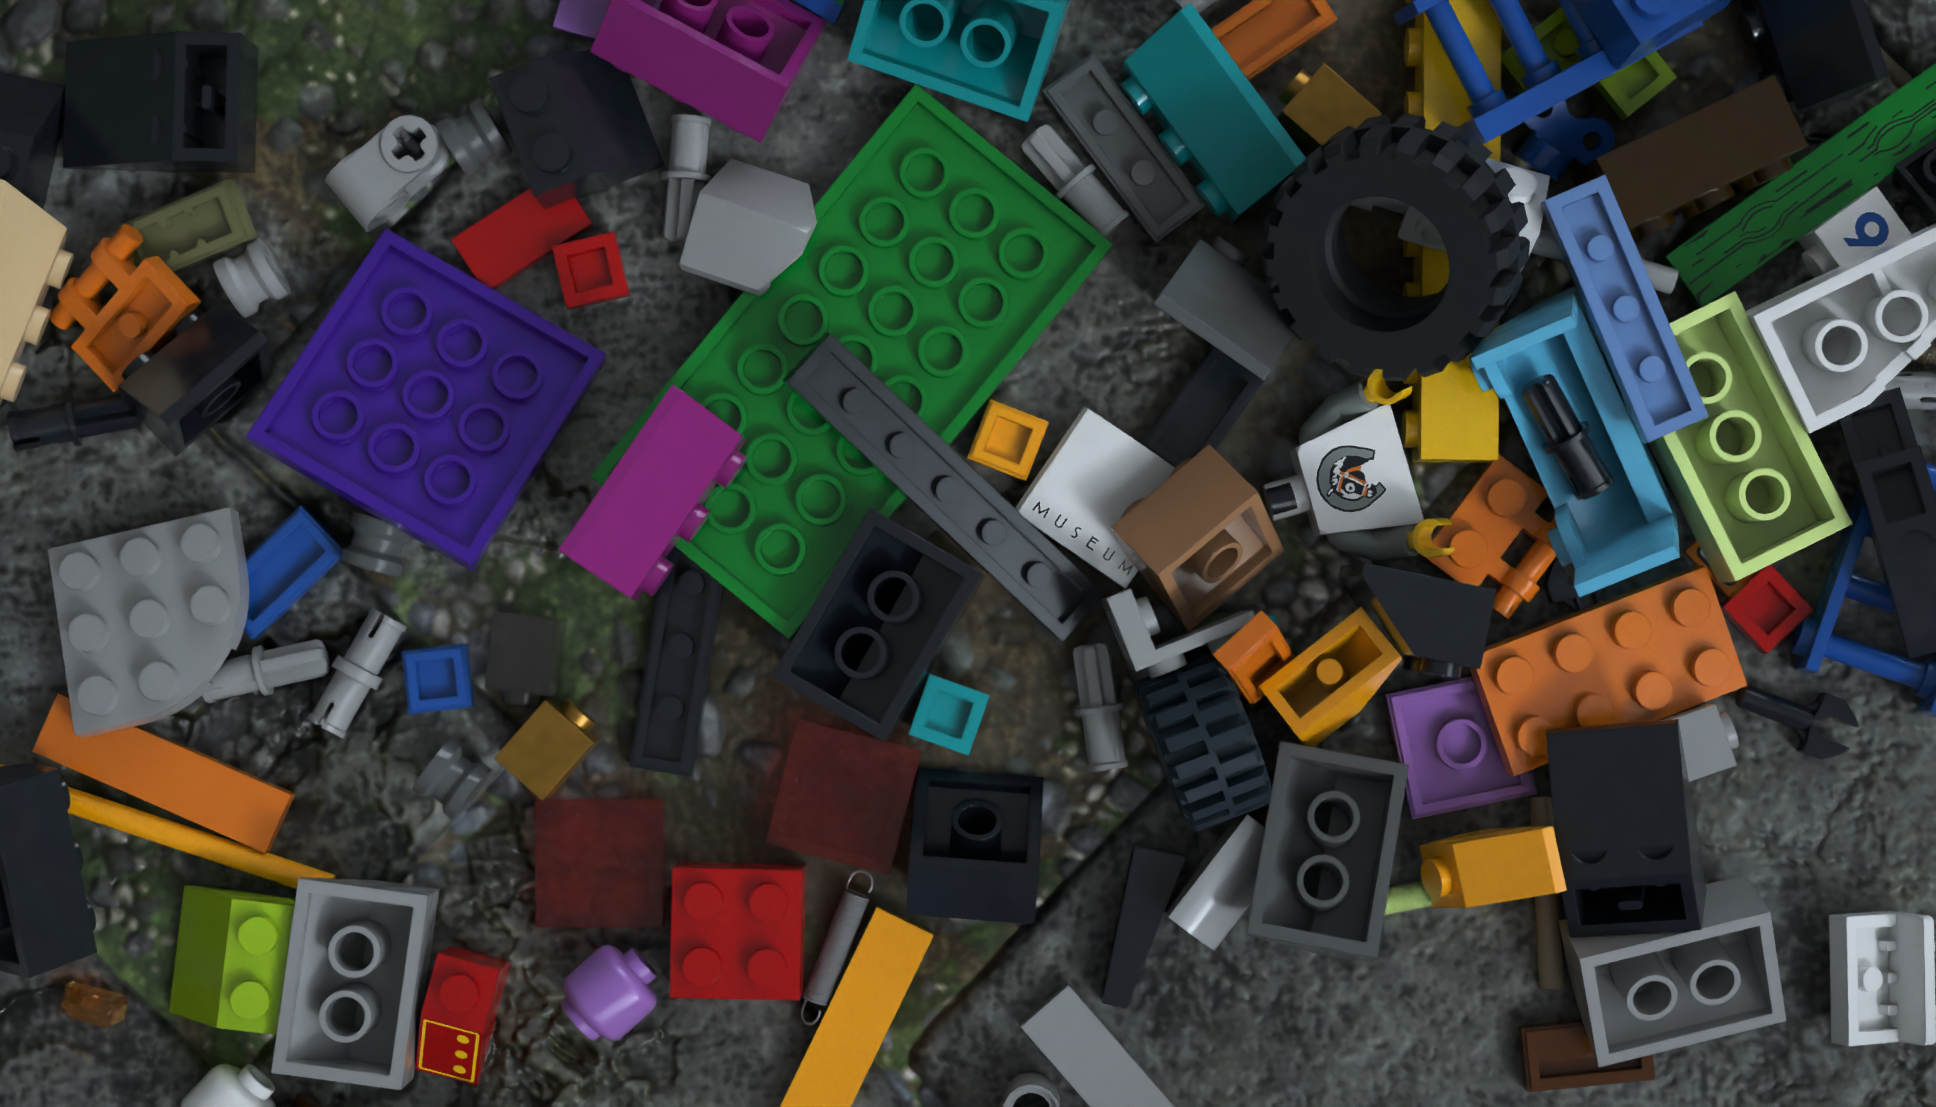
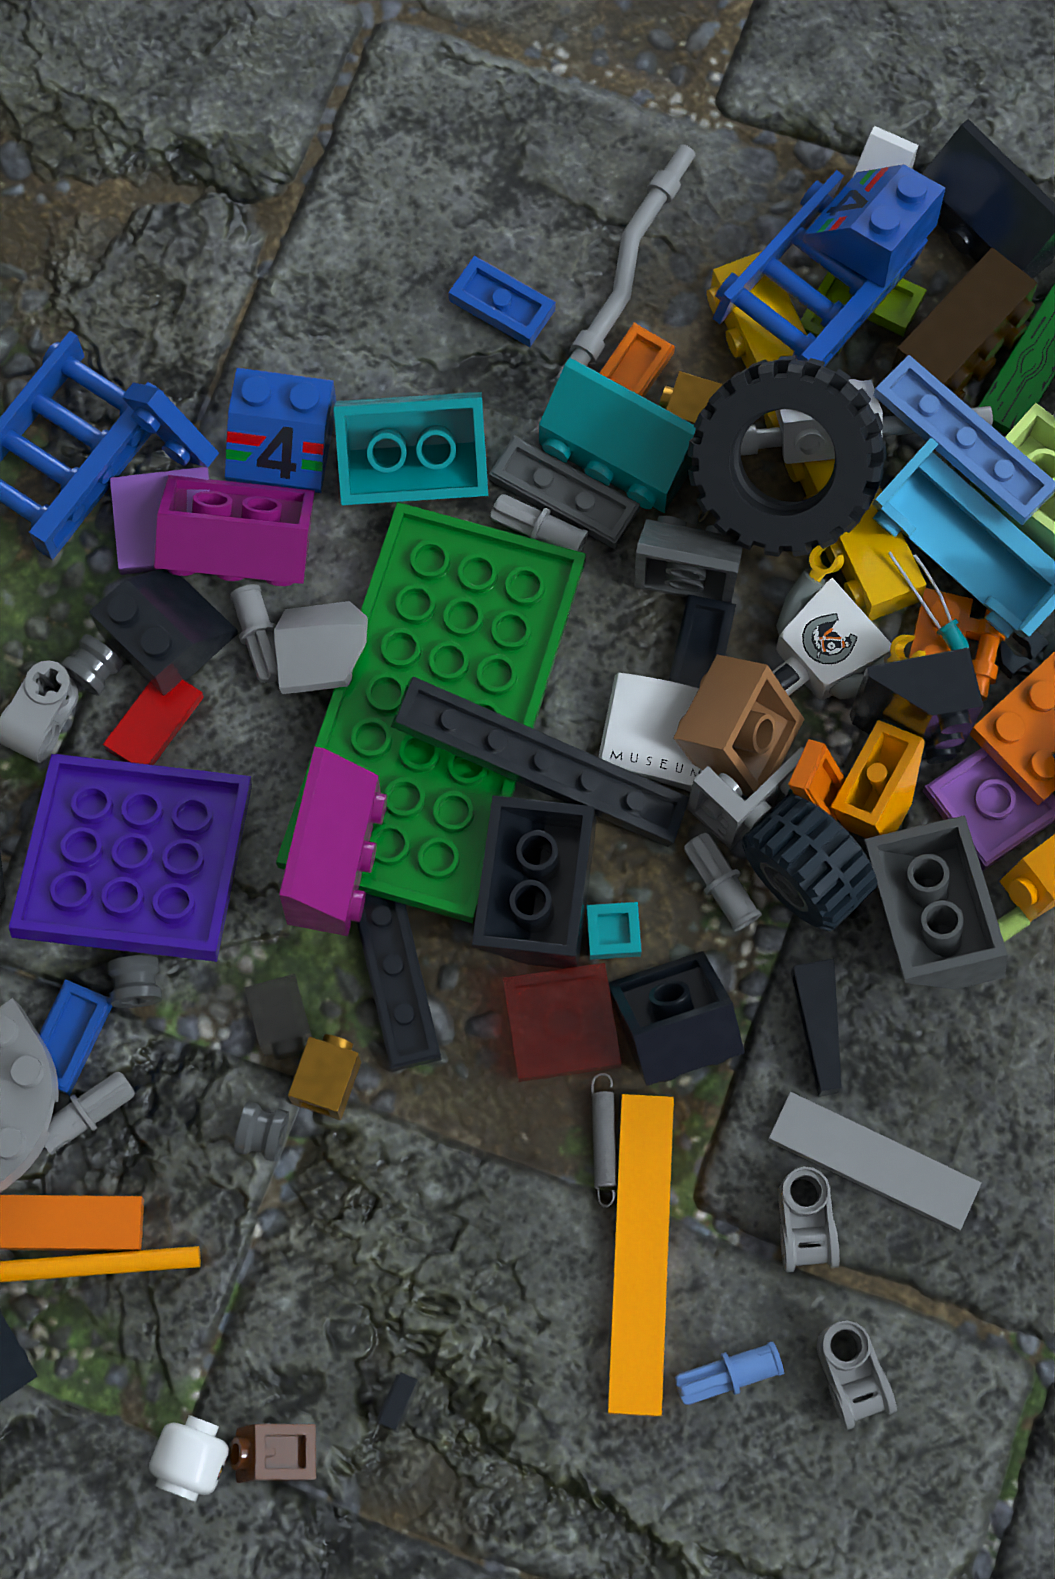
camera: 30 degrees left, 15 degrees down
(93, 1004) = (48, 1423): clear orange tile -> none
(231, 958) = (149, 1337): lime slope -> none
(355, 981) = (248, 1309): light grey slope -> none
(357, 672) = (156, 1083): light grey pin -> none
(438, 678) = (219, 1065): blue tile -> none
(460, 1013) = (339, 1309): red slope -> none
(591, 271) = (215, 724): red plate -> none
(600, 862) = (399, 1150): clear red plate -> none
(609, 993) = (448, 1240): medium lavender head -> none
(737, 931) = (526, 1151): red brick -> none
(1007, 440) = (571, 720): light orange tile -> none
(1220, 884) = (870, 968): light grey brick -> none
(1498, 526) = (949, 632): none -> piece
(1559, 138) = (865, 359): blue piece -> none
(1566, 437) = (967, 548): black axle -> none

